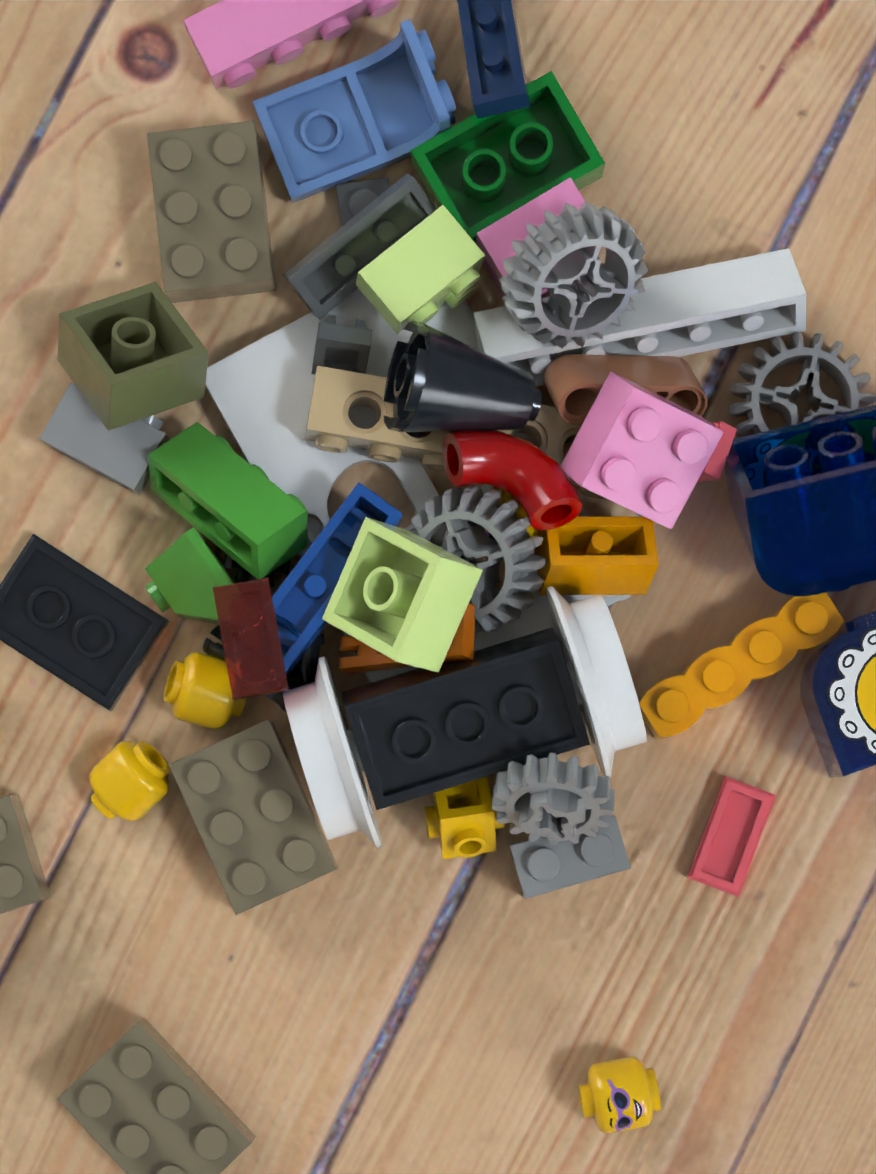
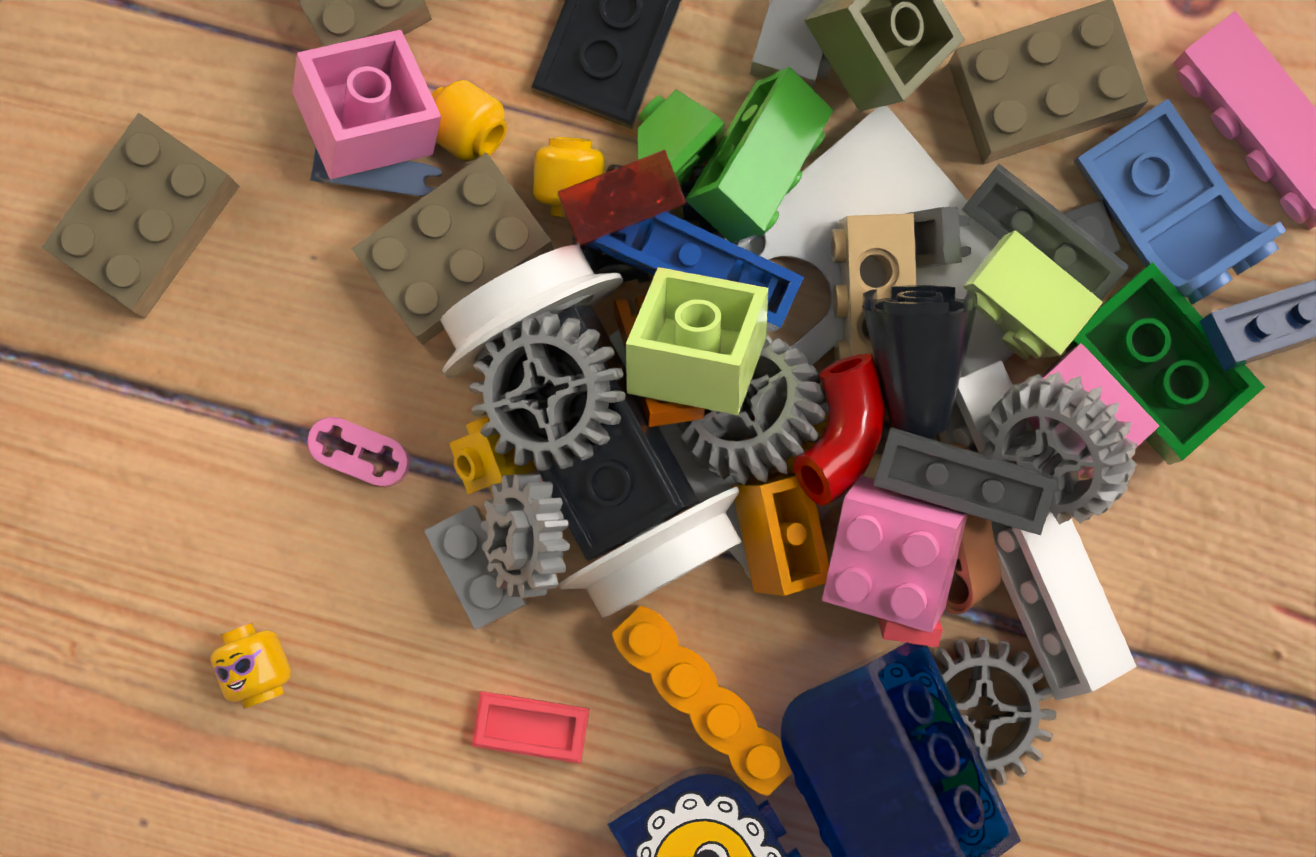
camera: 75 degrees right, 0 degrees up
(96, 873) = (365, 104): none -> bright pink brick
(161, 882) = (399, 178): none -> sand blue piece
(443, 957) = (363, 439): none -> bright pink beam
(448, 747) = (555, 411): none -> light grey gear
(588, 369) = (966, 481): none -> dark grey plate

